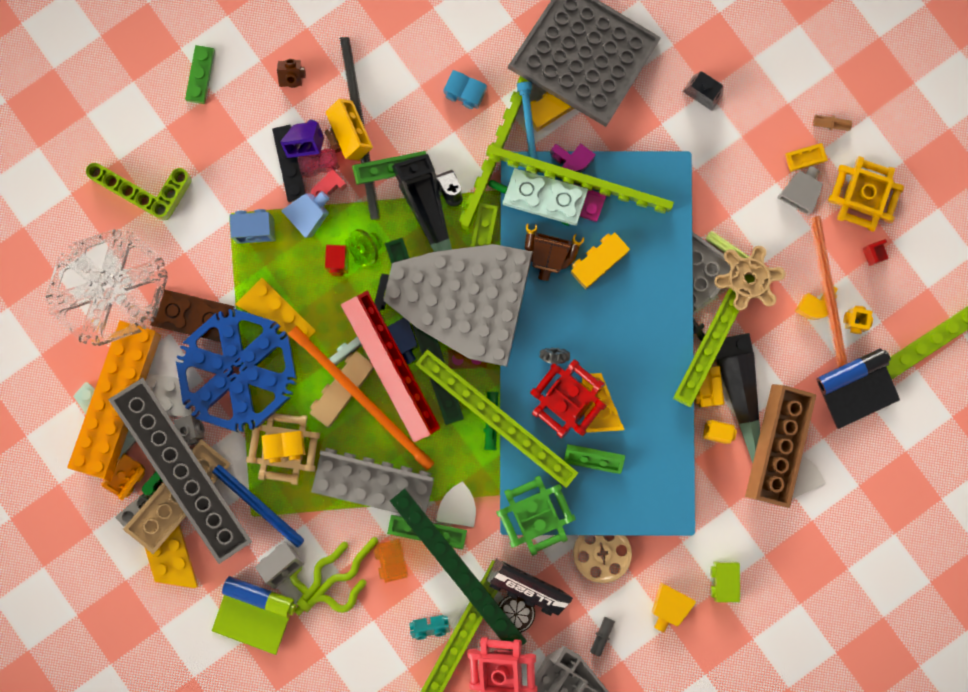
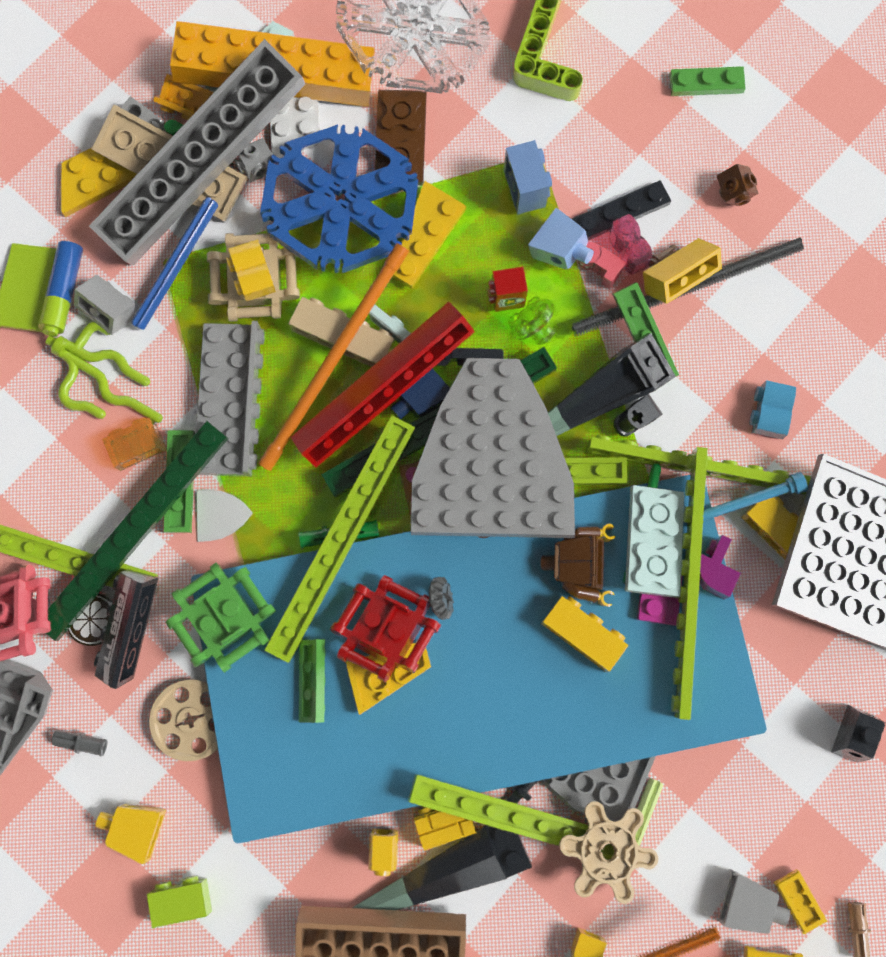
camera: 80 degrees right, 5 degrees down
(303, 139) = (655, 217): dark purple torso -> none
(436, 628) = (52, 501): teal hinge -> none

